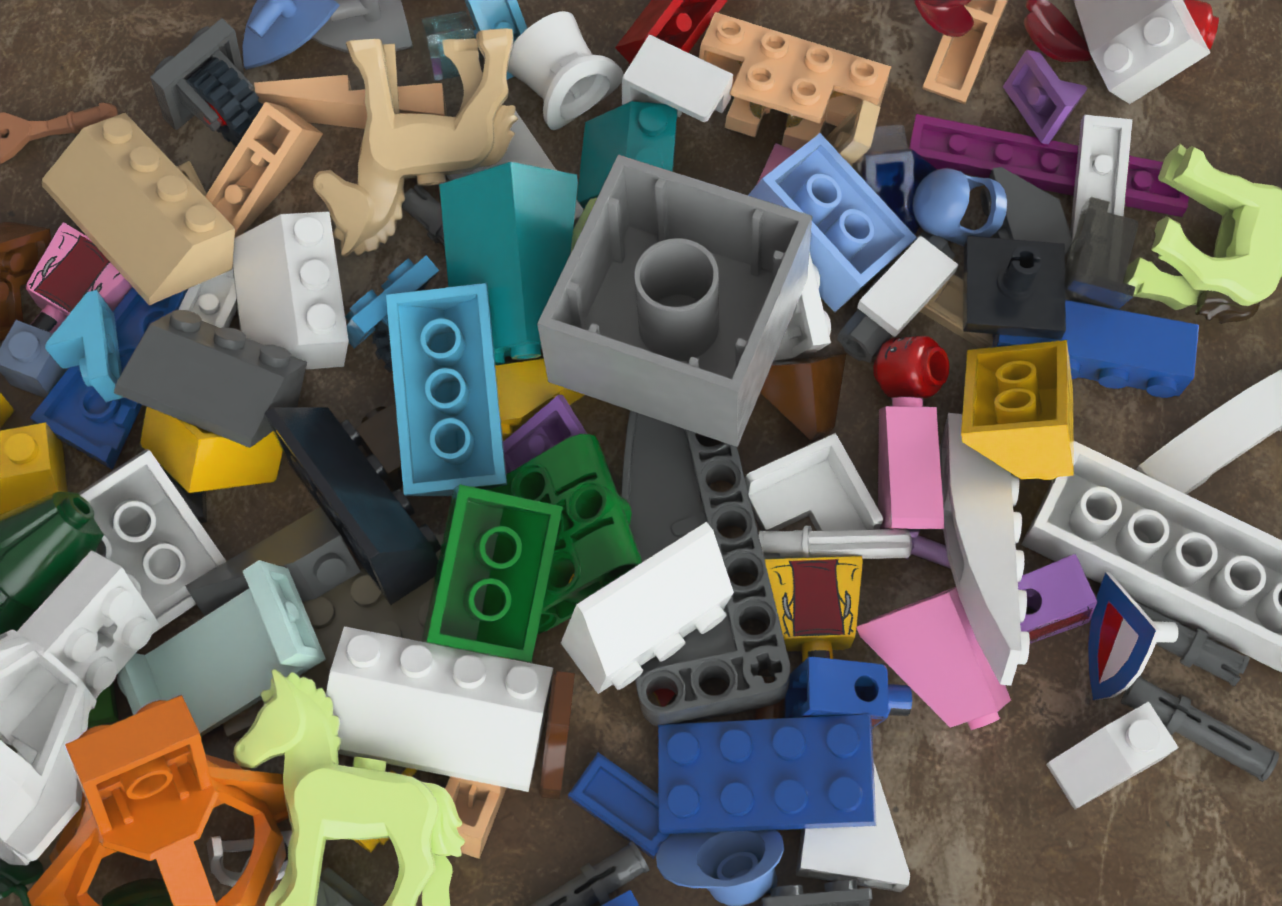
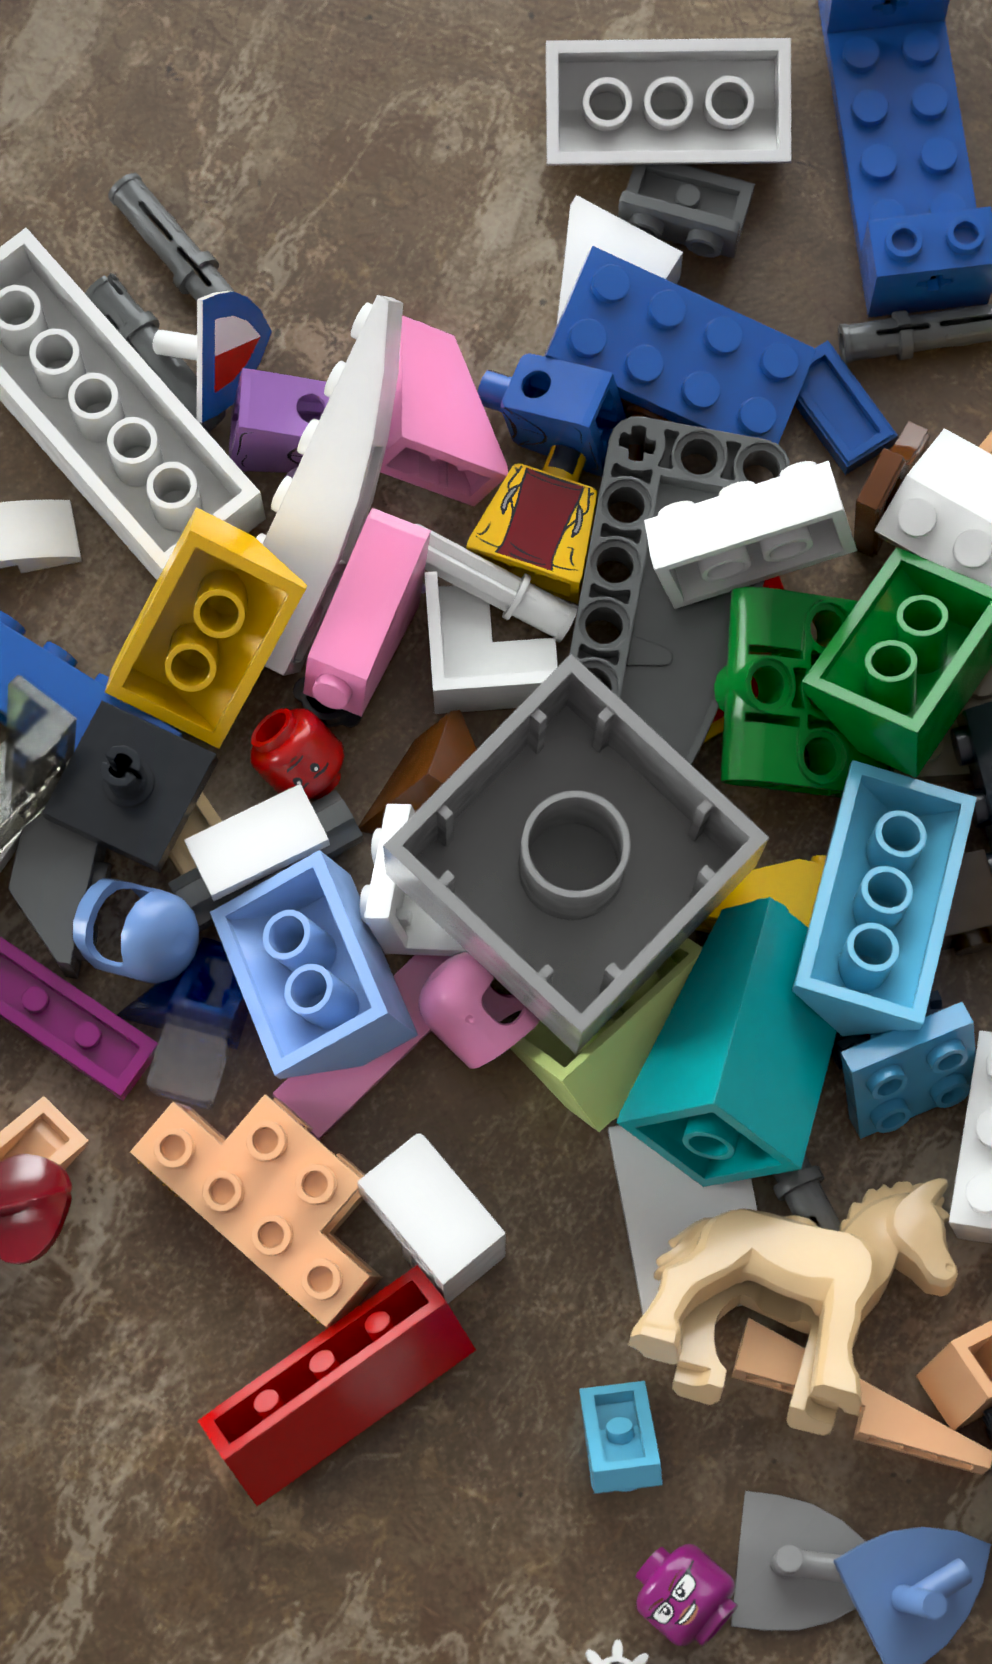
camera: 155 degrees left, 5 degrees up
(440, 28) = (695, 1465): clear light blue slope -> none
(541, 432) = (794, 821): medium lavender slope -> none
(562, 69) = (564, 1328): white hat -> none
(633, 131) = (531, 1176): teal slope -> none
(729, 864) = (765, 289): medium blue piece -> none
(855, 132) = (234, 1067): tan plate -> none
(1112, 755) = (288, 253): white slope -> none

